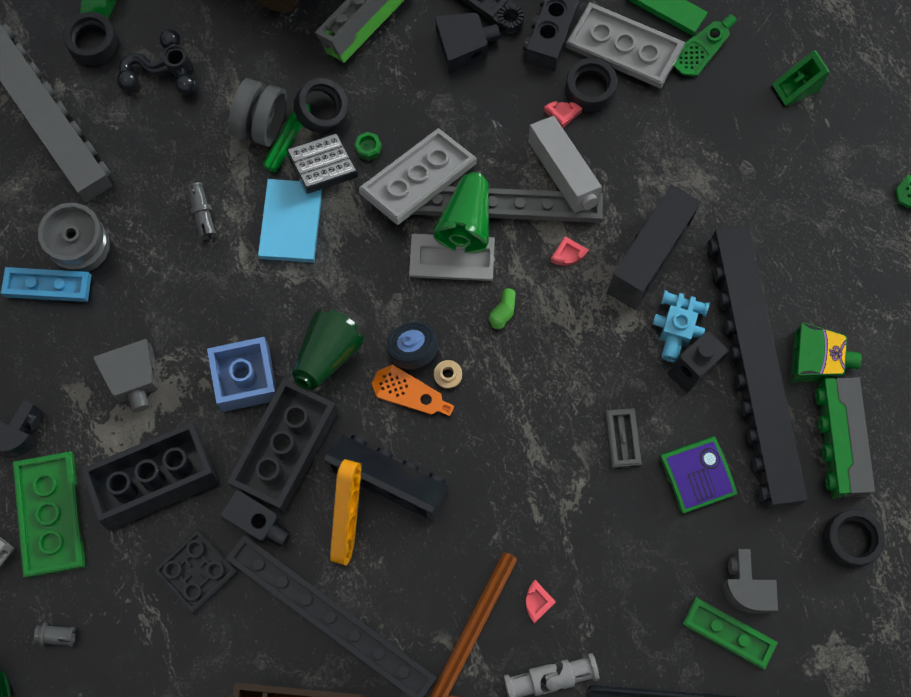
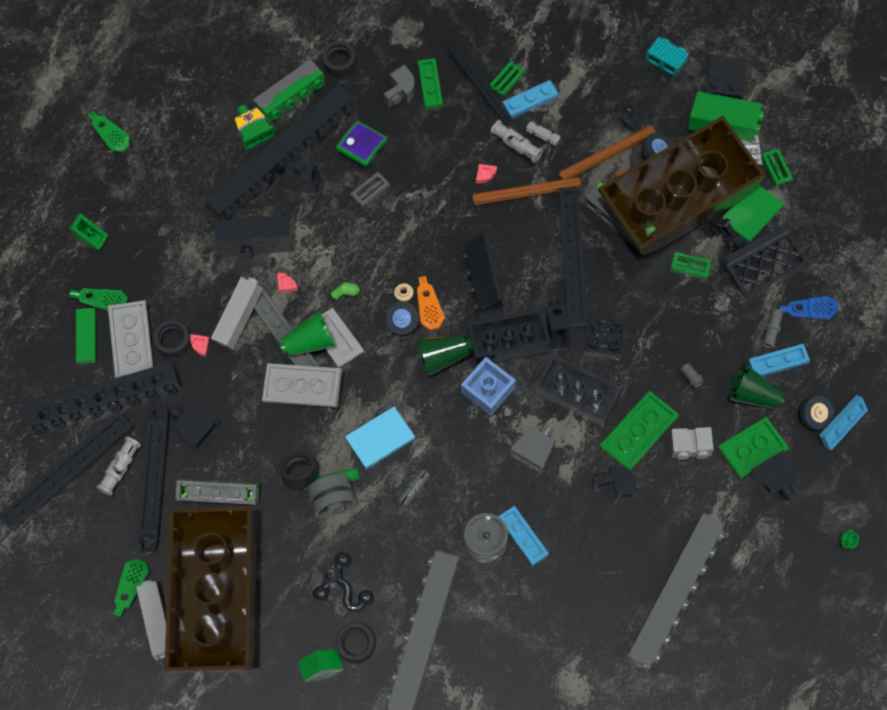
camera: 125 degrees left, 5 degrees down
(322, 163) = (334, 442): tile -> none
(345, 512) = (518, 275): light orange beam -> none
(368, 146) = (302, 429): green tile -> none
(679, 323) = (286, 201): medium azure piece -> none

